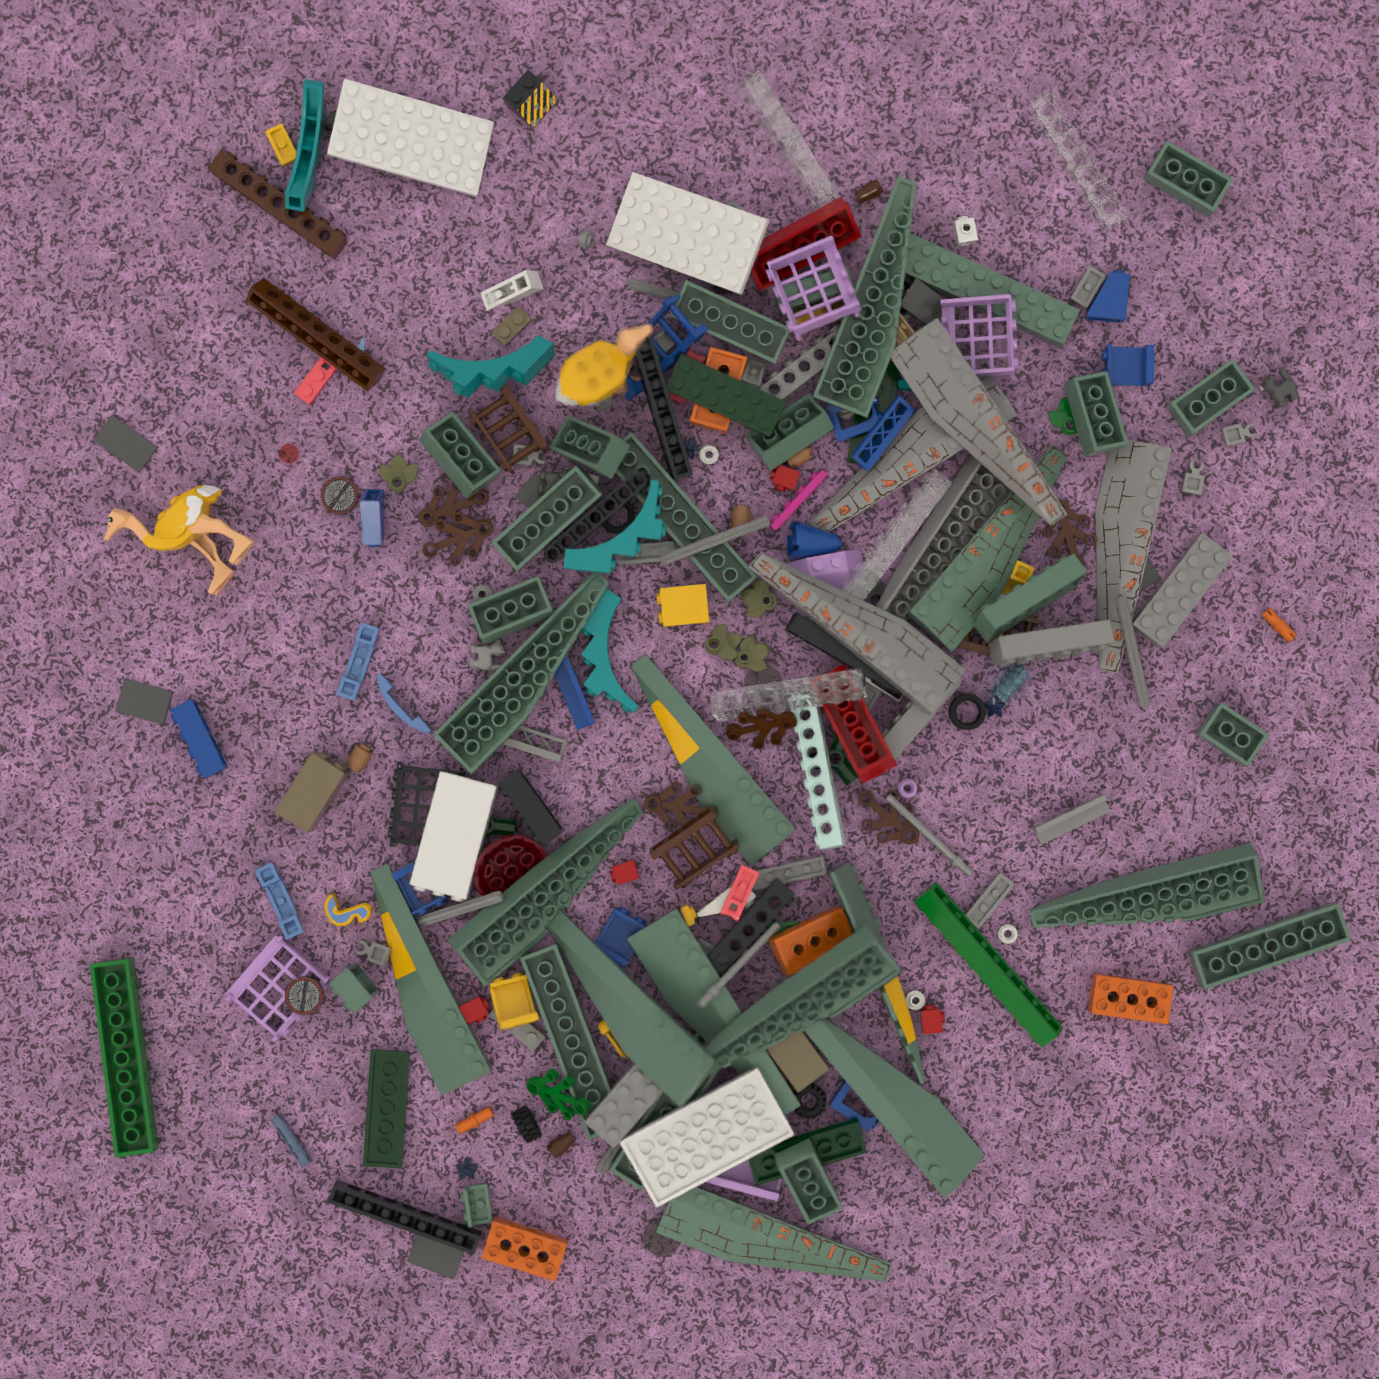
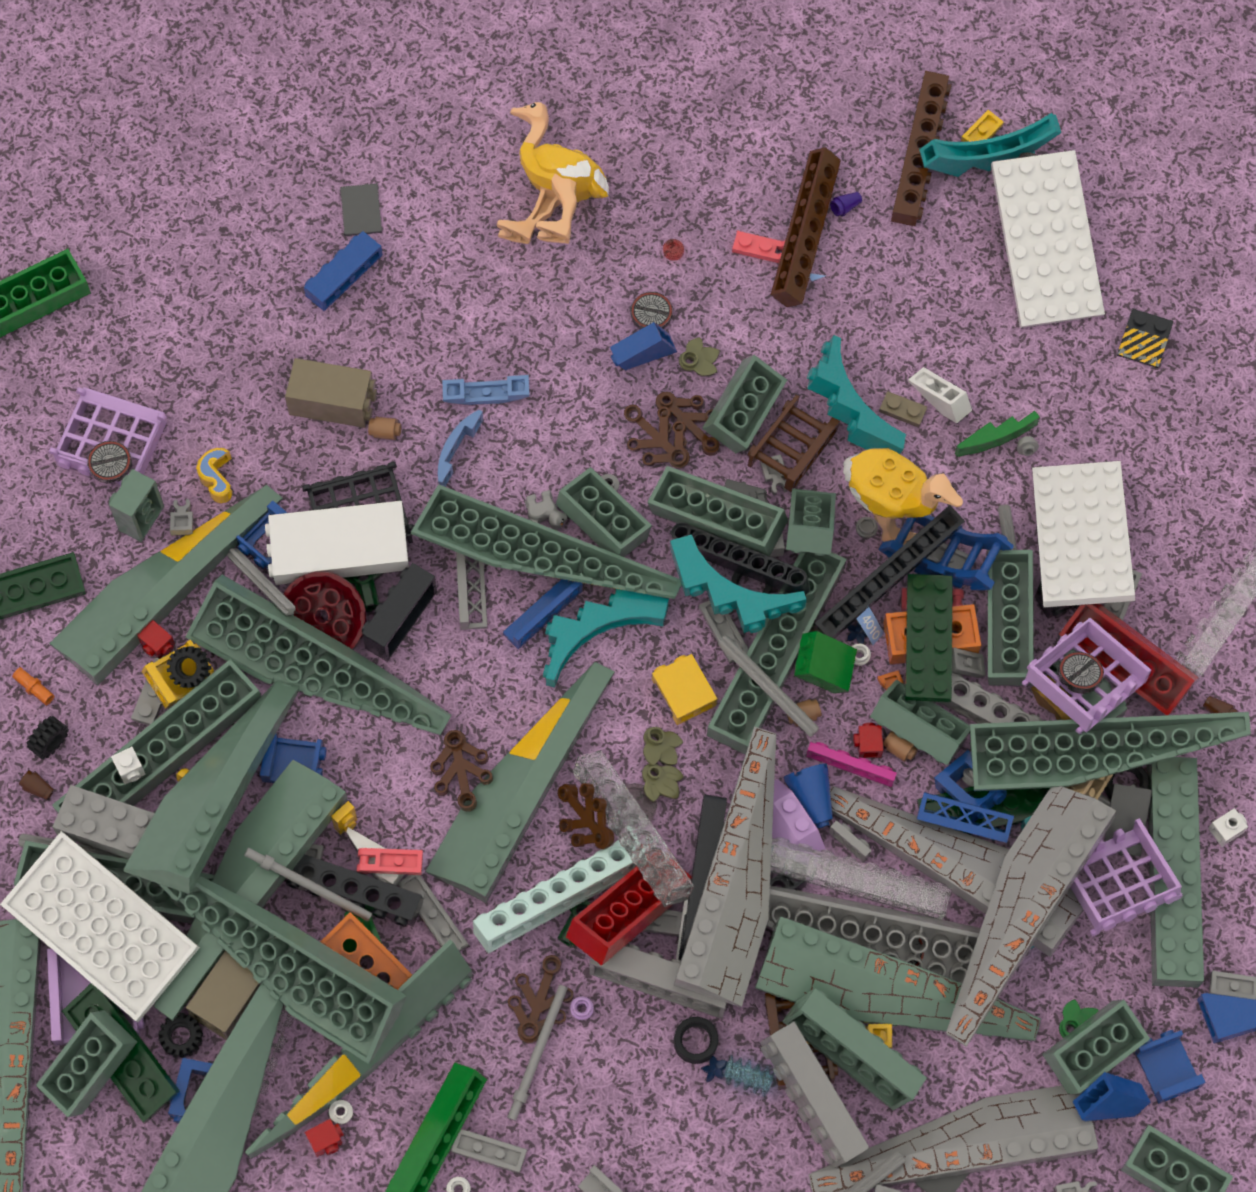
camera: 65 degrees right, 20 degrees down
(125, 443) = (616, 101): dark grey piece -> none
(281, 900) = (203, 408): medium blue slope -> none
(304, 291) = (845, 203): none -> dark purple cone
(519, 1001) = (176, 666): none -> black tyre
(537, 1086) = (93, 735): green plant -> none
(566, 266) = (991, 437): none -> green slope
(583, 1070) = (128, 765): none -> white brick
(624, 872) = (366, 738): red brick -> none
(691, 436) = (870, 625): none -> light blue sticker
(692, 829) = (440, 786): reddish brown fence -> none
(710, 485) = (825, 662): none -> green brick
(740, 438) = (887, 679): none -> orange tile
(756, 597) = (724, 762): olive plate -> none
(809, 291) = (1080, 672): none -> tile
(866, 524) = (844, 835): none -> light grey plate
(1068, 531) = (950, 1073): reddish brown plant -> none
(1139, 421) = (1111, 1099): none -> blue slope

